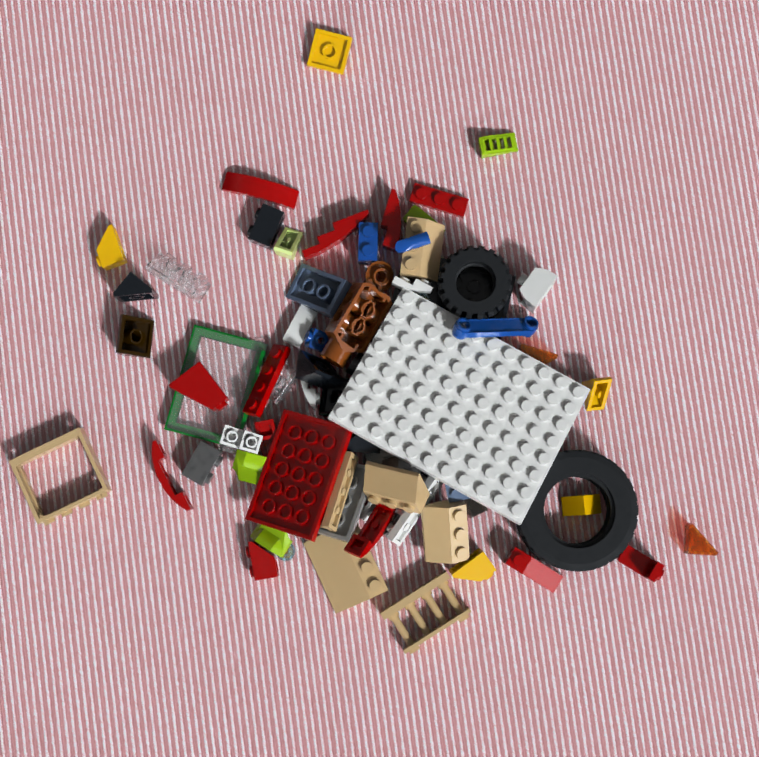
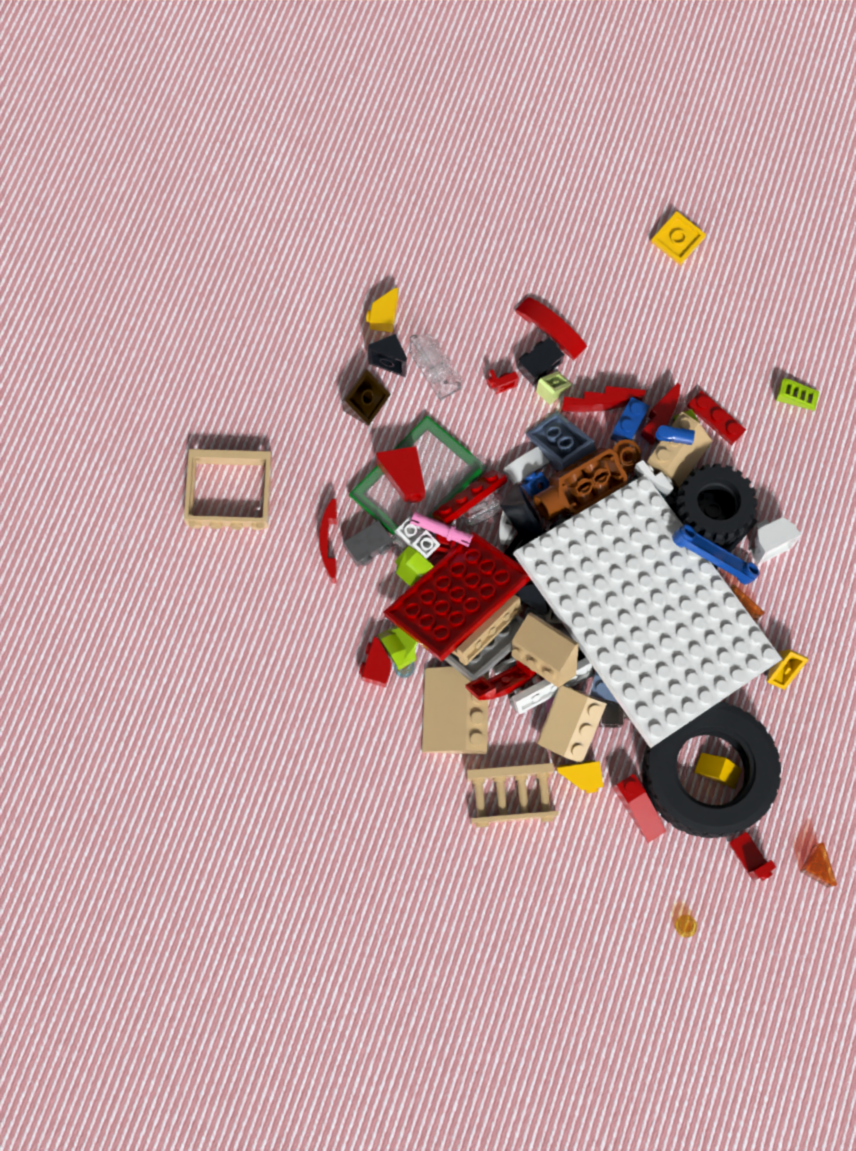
camera: 20 degrees right, 10 degrees down
(245, 261) = (503, 383): none -> red bracket
(257, 423) = (442, 529): none -> bright pink pin
(614, 645) = (686, 926): none -> clear yellow plate

